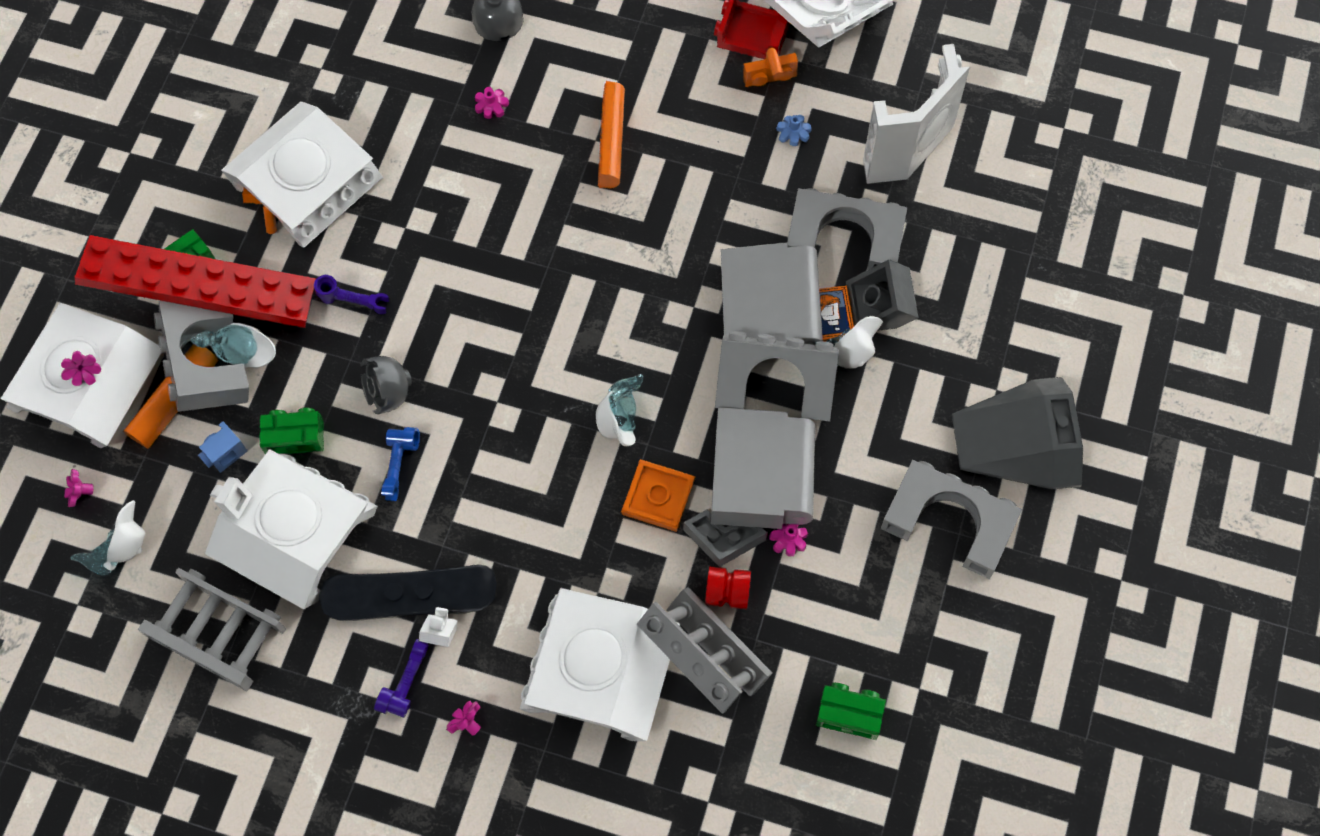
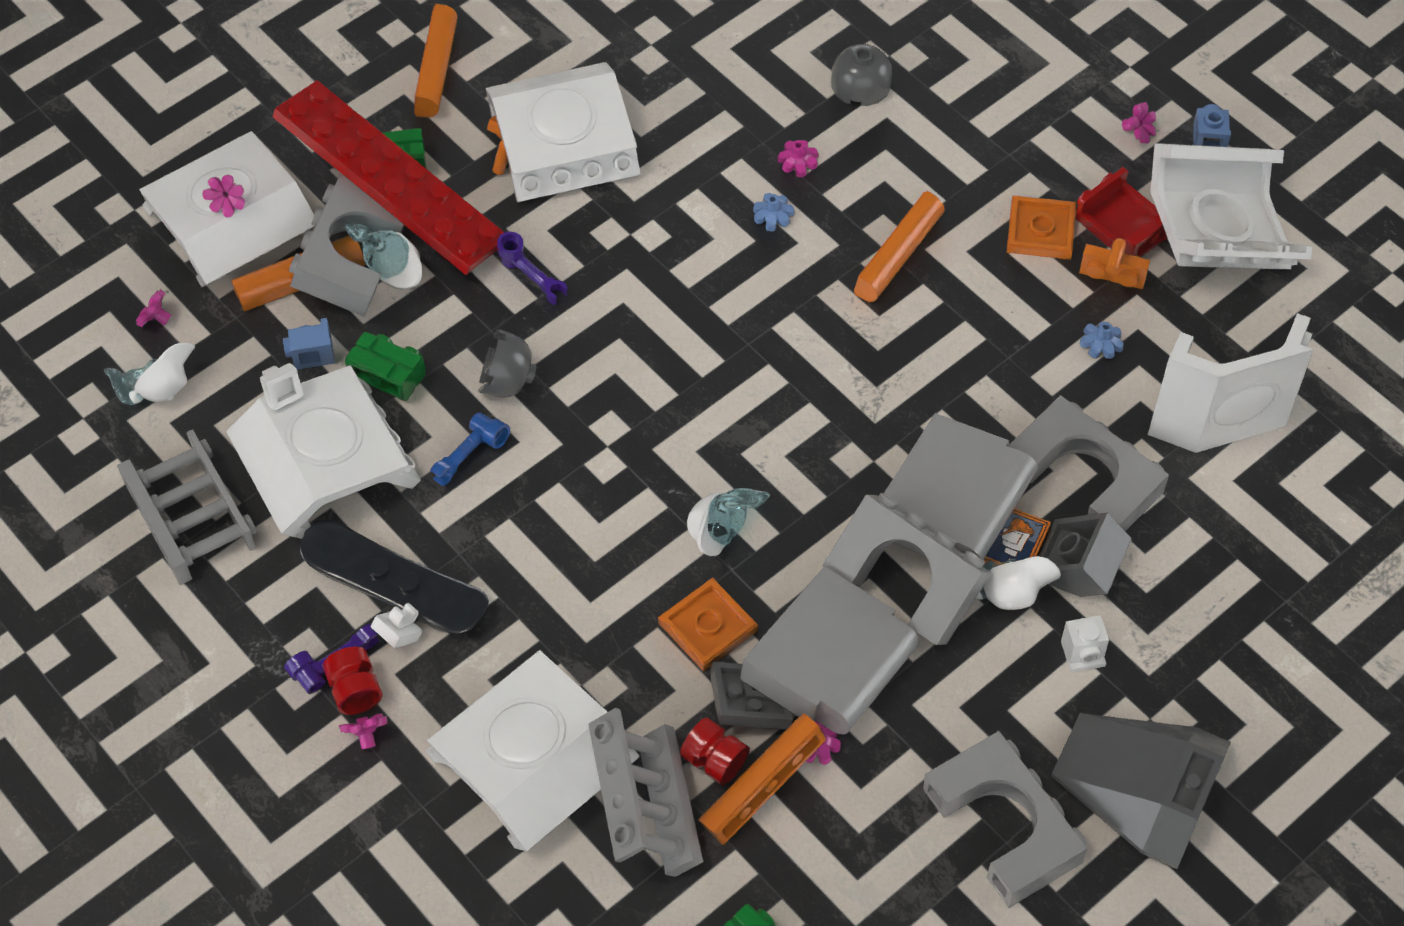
camera: 30 degrees right, 10 degrees down
(164, 167) = (435, 61): none -> orange brick
(430, 687) = (352, 680): none -> red wheel
(500, 154) = (773, 211): none -> medium blue plant
(699, 66) = (1041, 227): none -> orange tile
(775, 588) = (763, 779): none -> orange brick
(925, 361) = (1085, 643): none -> white brick

